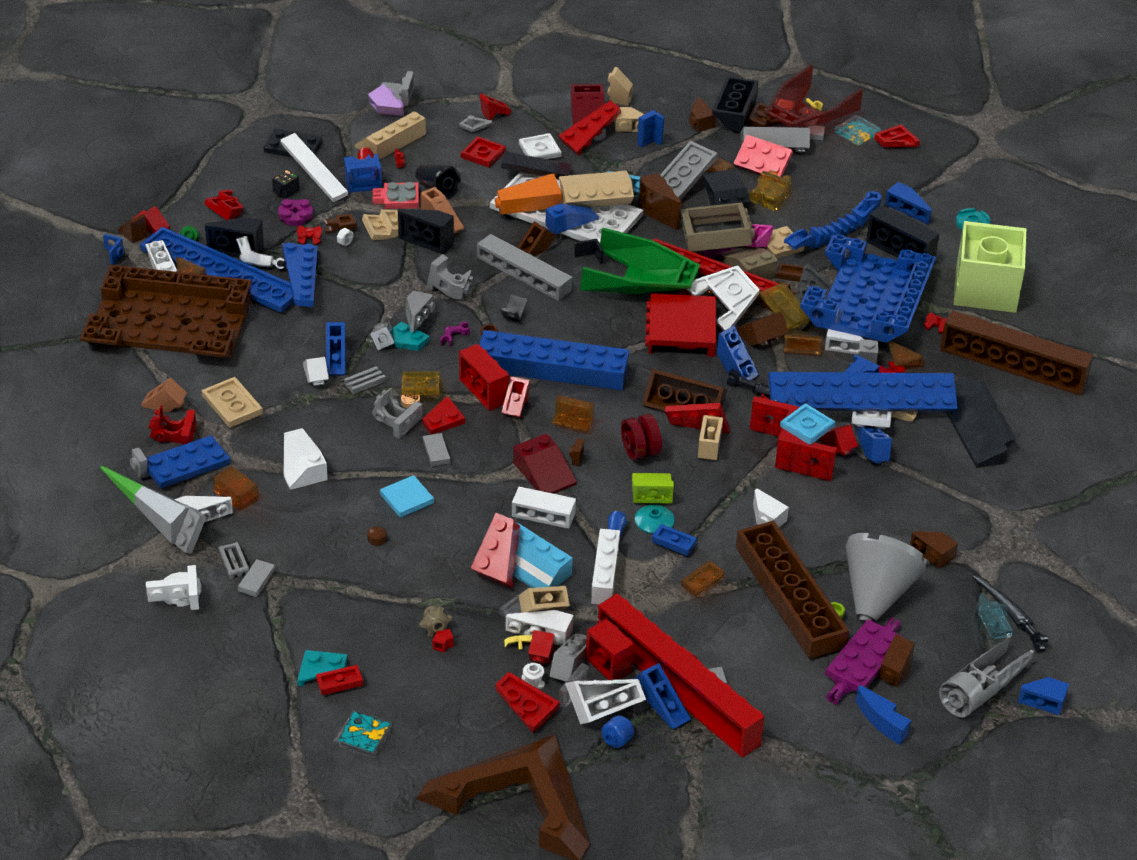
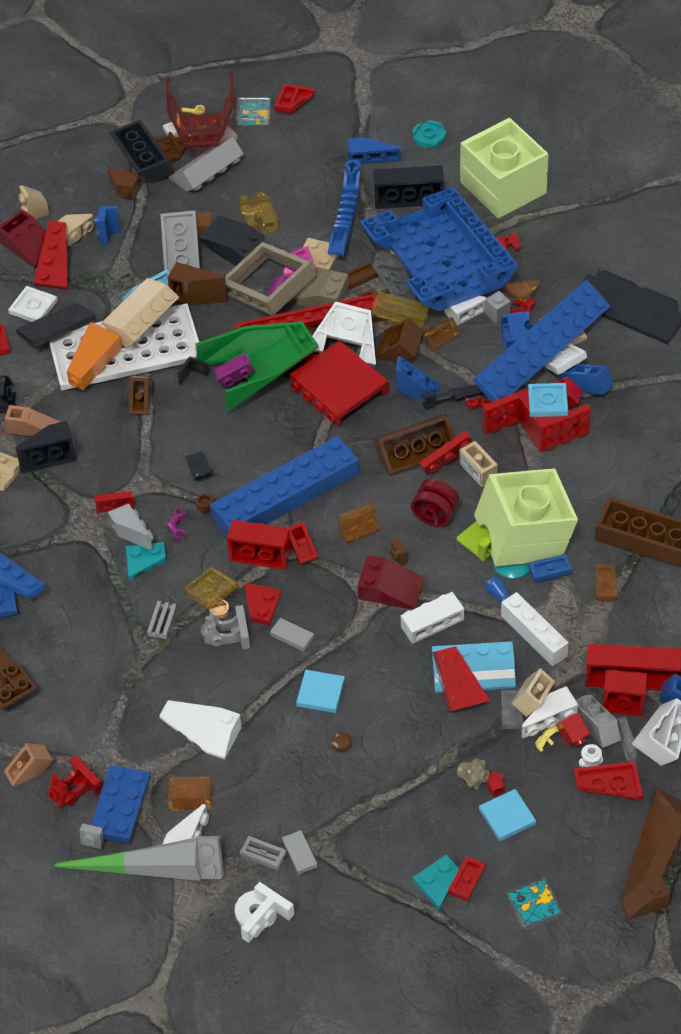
camera: 40 degrees left, 10 degrees up
(232, 402) = (86, 723): tan plate -> none
(316, 370) = (117, 642): white slope -> none
(335, 348) = (109, 612): blue slope -> none
(381, 335) = (128, 569): light grey bracket -> none
(424, 666) = (507, 815): none -> medium azure tile
(428, 287) = (109, 502): none -> red plate
(450, 284) = (116, 483): light grey tile -> none
(524, 267) = (159, 423): light grey brick -> none
(565, 217) = (145, 353): blue slope -> none
(620, 268) = (234, 370): none -> magenta bracket
(686, 483) = (526, 516): none -> yellowish green piece
(760, 156) = (220, 188): coral plate -> none
(769, 509) = (584, 492): white slope -> none
(1016, 352) = (596, 228): reddish brown brick -> none

